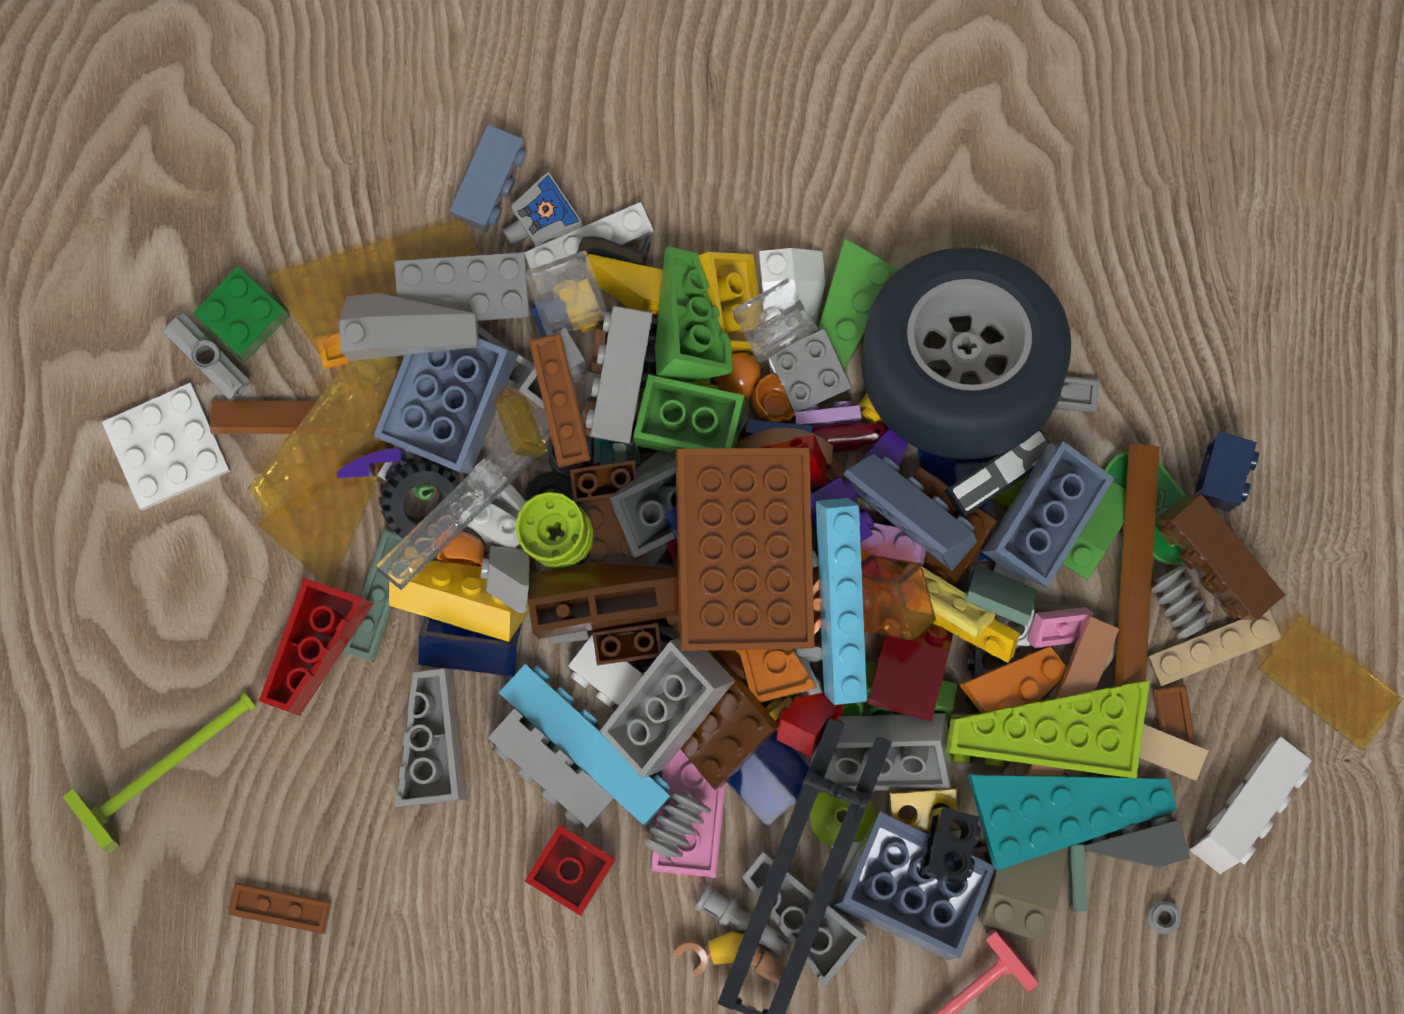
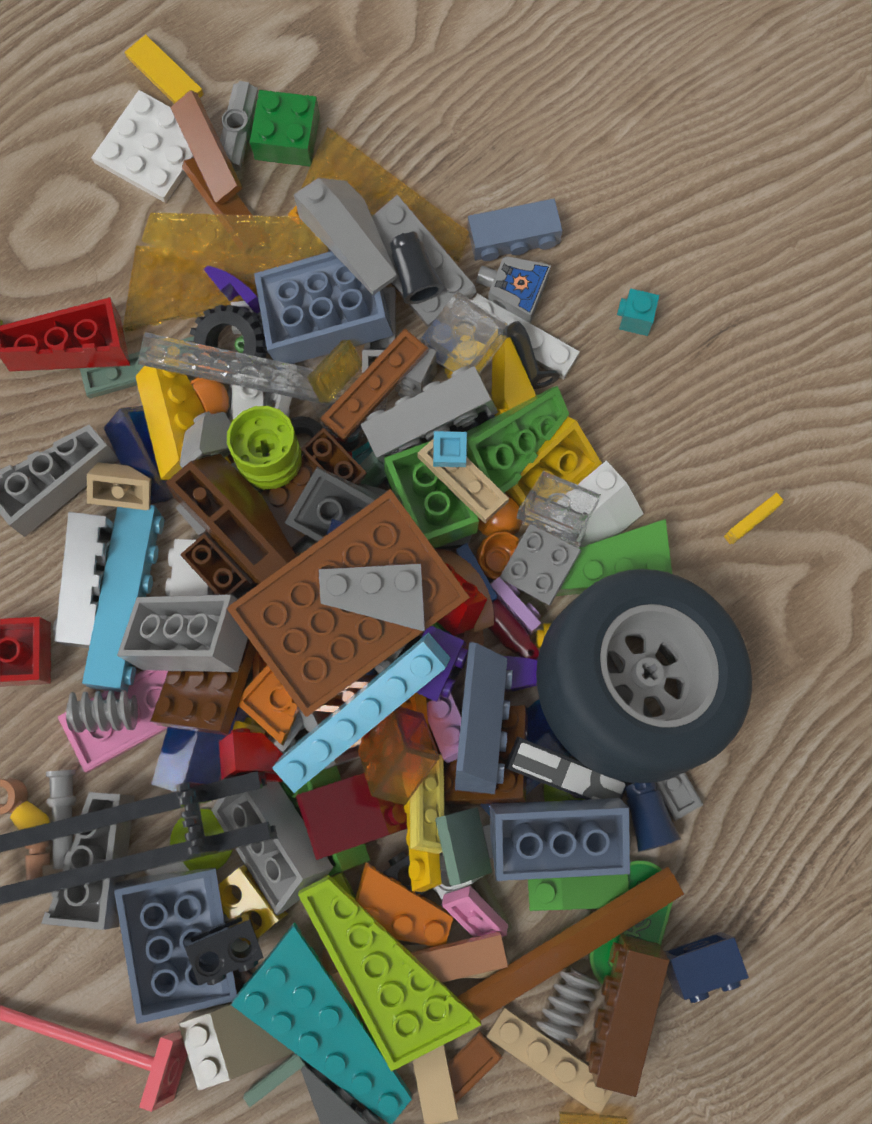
camera: 55 degrees right, 5 degrees down
(98, 387) = (161, 69): none -> yellow tile
(214, 398) = (206, 147): none -> tile
(477, 294) = (414, 269): none -> black plant
(490, 681) = (118, 487): none -> tan slope
(642, 126) = (637, 311): none -> teal brick
(671, 377) = (449, 449): none -> medium azure plate
(699, 383) = (468, 485): none -> tan plate
(754, 519) = (376, 591): none -> light grey wing
(893, 163) = (754, 518): none -> yellow tile
(1080, 430) = (650, 817): none -> dark blue plant

